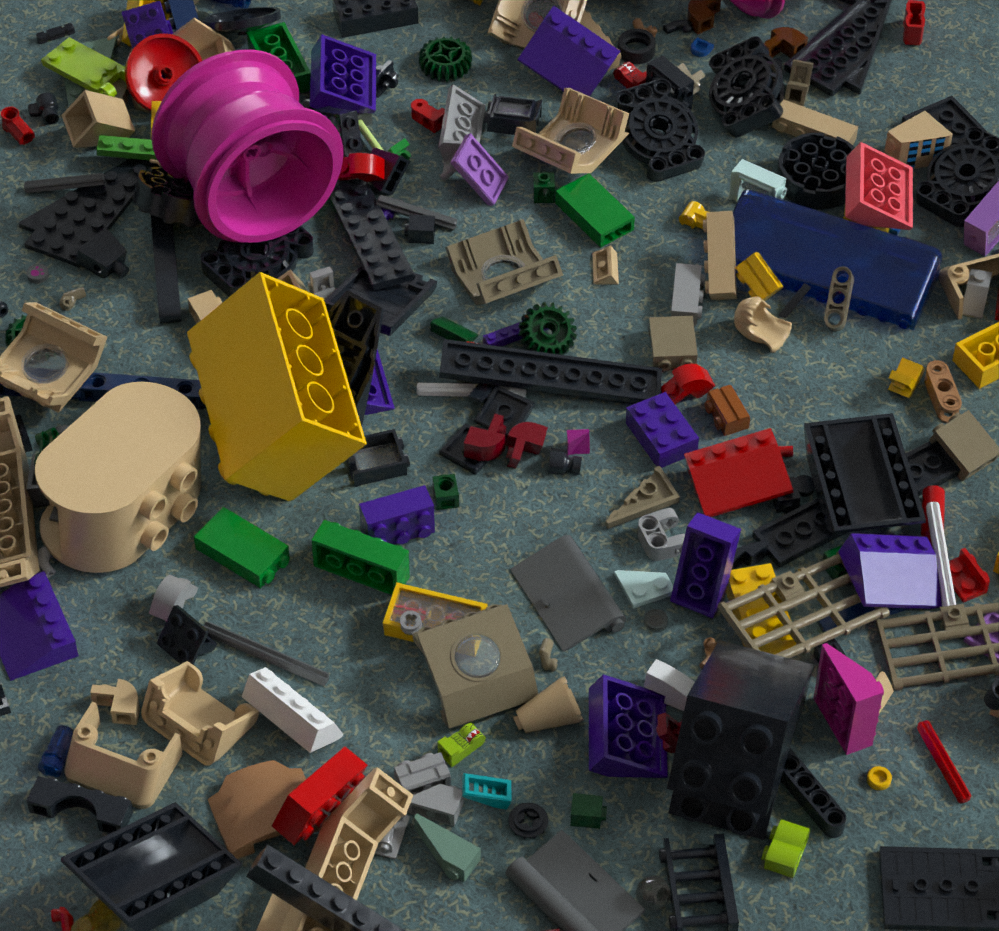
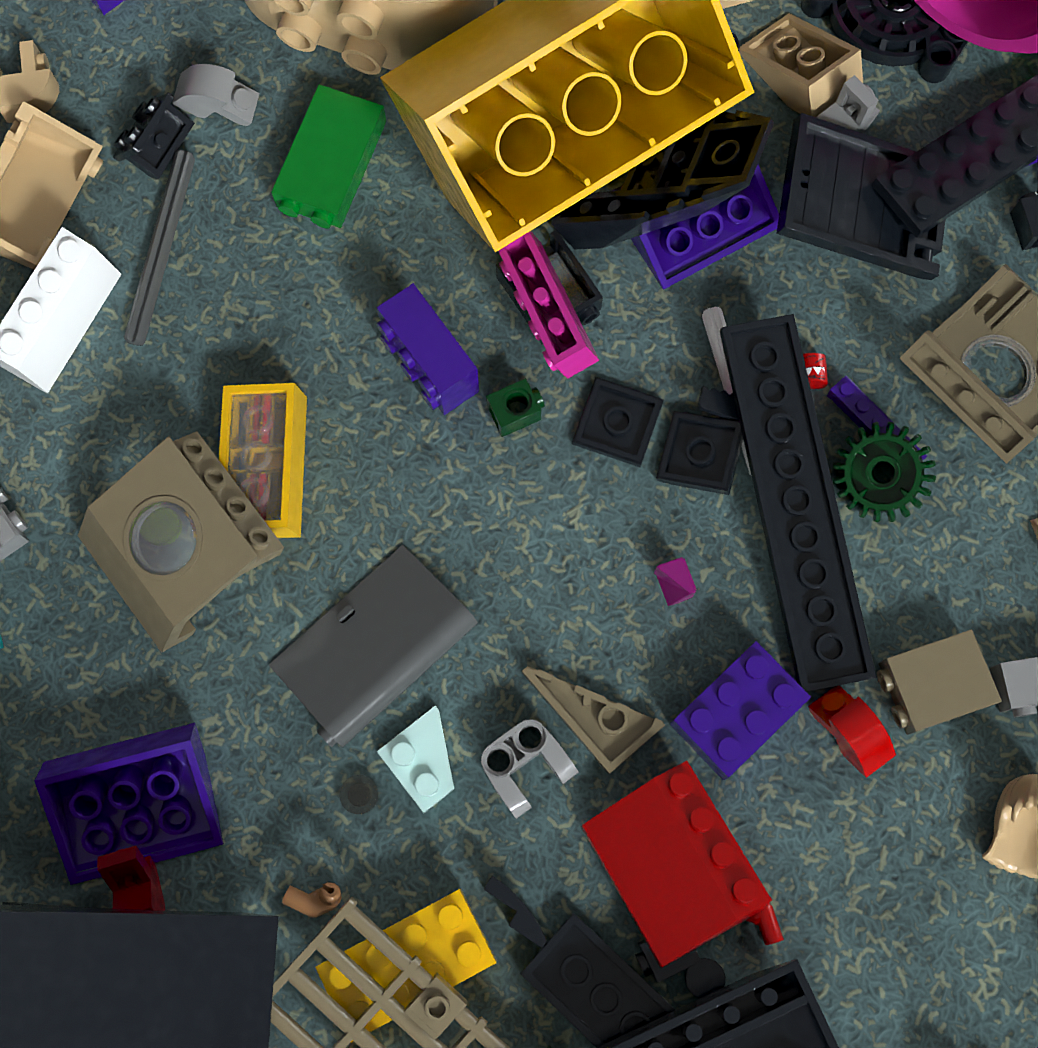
camera: 75 degrees right, 25 degrees up
(360, 557) = (339, 320): green brick -> none
(398, 445) = (548, 306): none -> dark pink brick
(413, 615) = (222, 435): light grey bush -> none
(452, 330) = (847, 330): dark green slope -> none
(460, 744) = (53, 559): lime leg -> none
(486, 444) = (619, 445): dark red brick -> none
(524, 437) = (653, 495): dark red brick -> none
(545, 654) = (249, 639): dark tan arm -> none
(549, 709) = (138, 677): tan cone -> none
(560, 462) = (626, 565): black piece -> none
(668, 682) = (222, 861): white slope -> none
(705, 564) = (437, 856): dark purple brick -> none
(727, 410) = (821, 809): dark orange brick -> none

